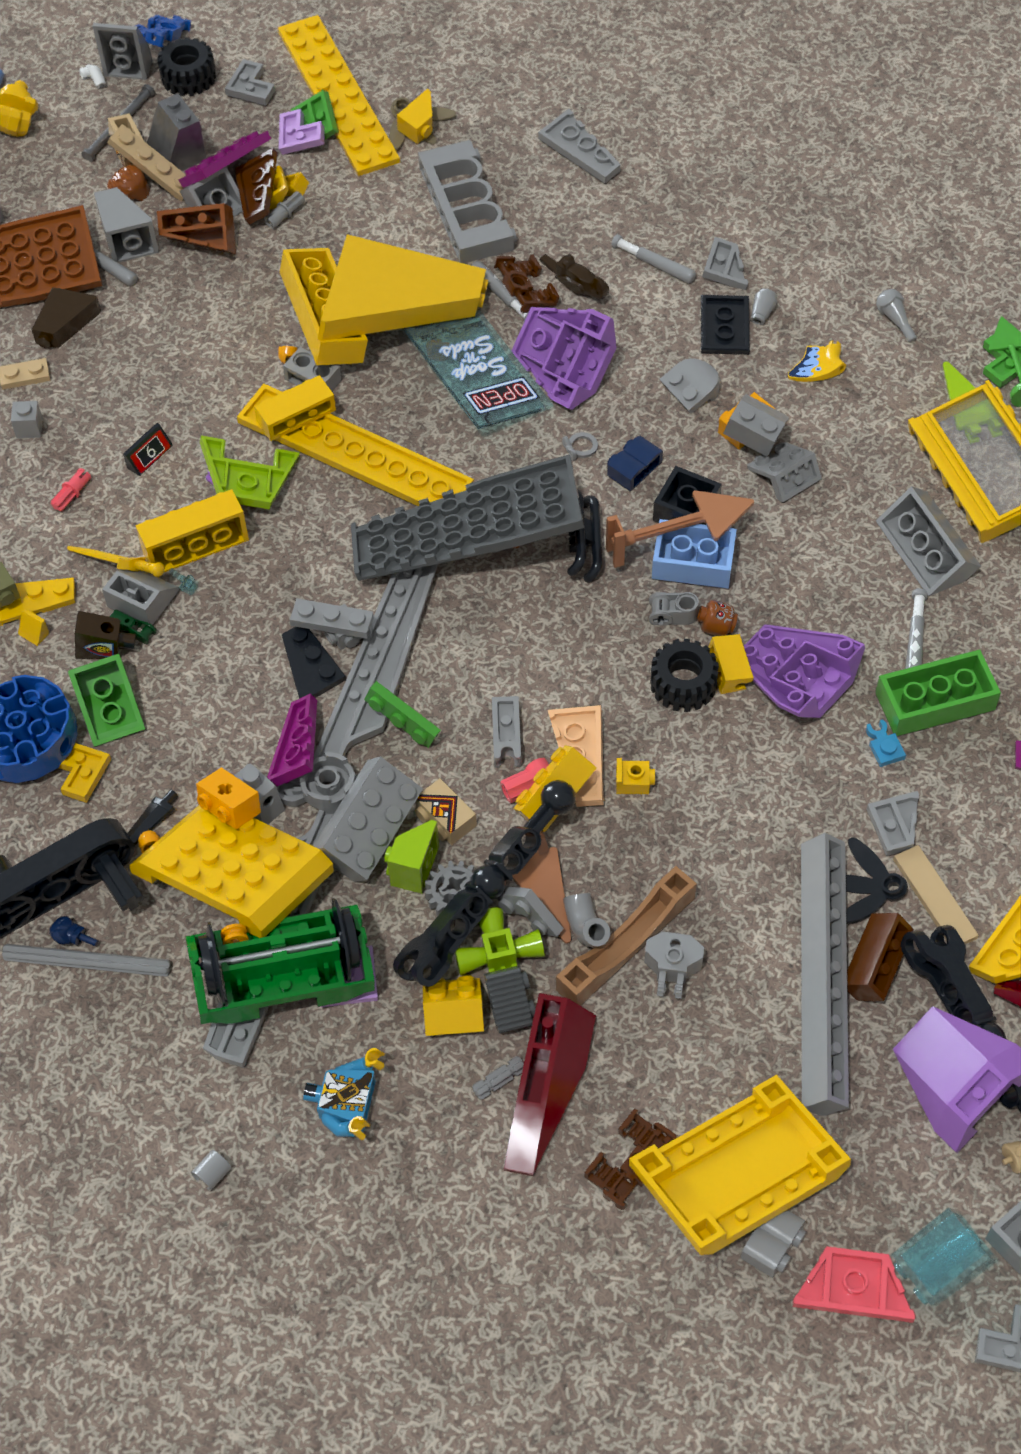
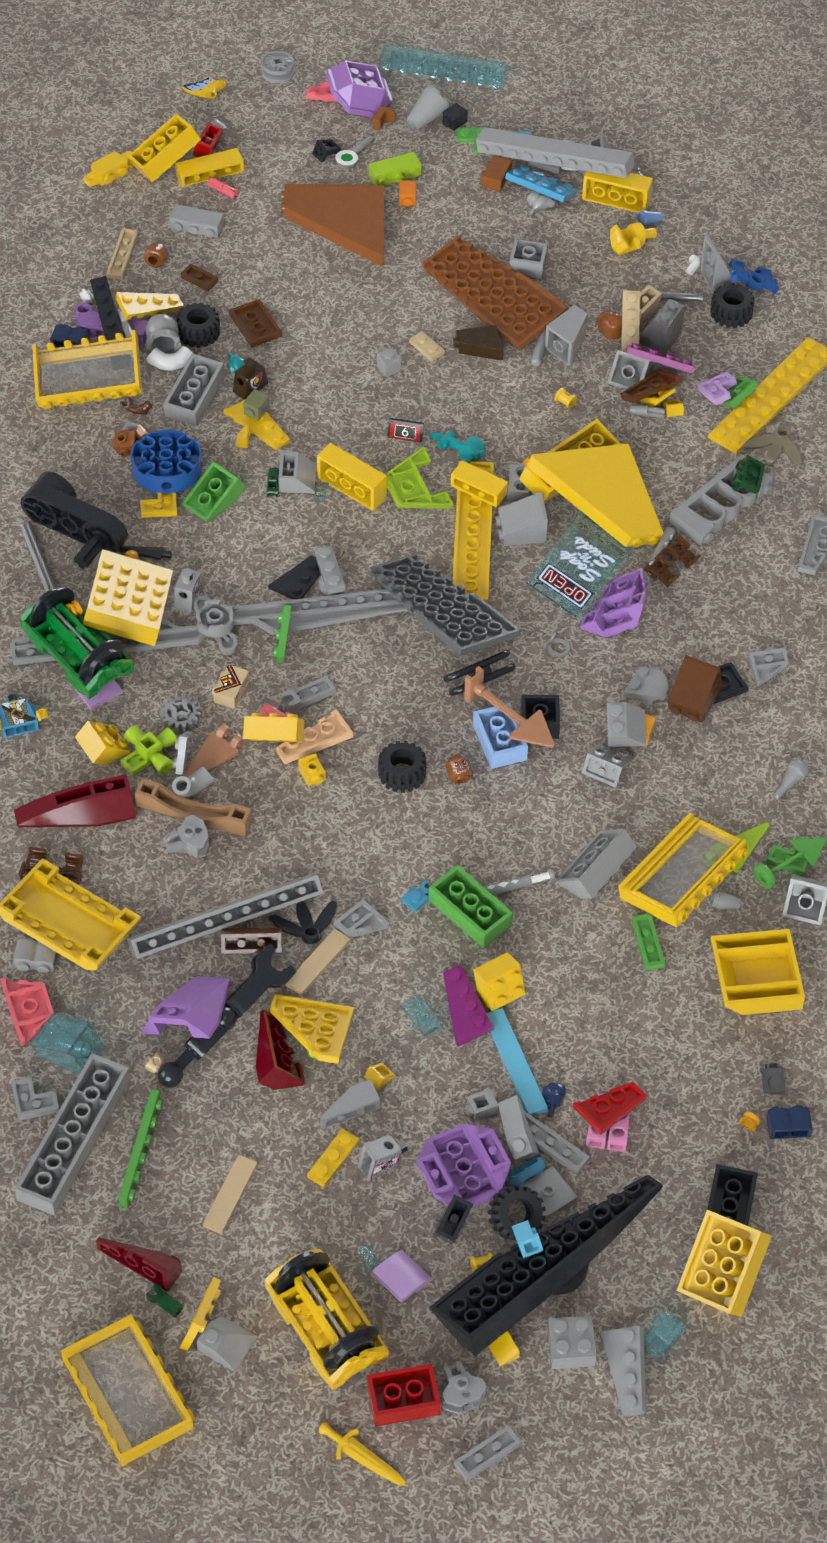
camera: 60 degrees right, 5 degrees down
(67, 932) = (52, 547): dark blue piece -> none
(70, 490) = (352, 408): coral axle -> none
(100, 636) = (251, 467): dark brown torso -> none
(123, 563) = (311, 453): yellow sword -> none
(200, 225) = (596, 374): dark orange wedge -> none
(211, 274) = (565, 398): none -> yellow bush
(227, 396) = (469, 450): none -> teal piece
(228, 798) = (168, 571): light orange brick -> none
(247, 86) = (743, 342): light grey plate -> none
(296, 743) = (231, 591): magenta wing -> none
(368, 819) = (197, 646): light grey brick -> none
(379, 390) = (523, 521): none -> light grey slope
(412, 857) = (188, 680): lime slope -> none
(416, 118) = (776, 443): yellow slope -> none
(438, 943) = (183, 719): black piece -> none
(456, 156) = (748, 474): none -> dark green bracket
(498, 1077) = (59, 781): light grey axle -> none
(509, 999) = (118, 762): dark grey brick -> none
(576, 276) = (696, 586): dark brown animal -> none
(634, 462) = (558, 678): dark blue brick -> none
(671, 267) = (744, 637): light grey piece -> none
(673, 608) = (452, 742): light grey piece -> none
(732, 663) = (427, 787): yellow hinge -> none
(735, 337) = (695, 689): none -> reddish brown slope
(763, 305) = (745, 699): light grey cone -> none
(802, 667) = (444, 827): medium lavender wedge -> none
(819, 363) = (716, 751): yellow arm -> none

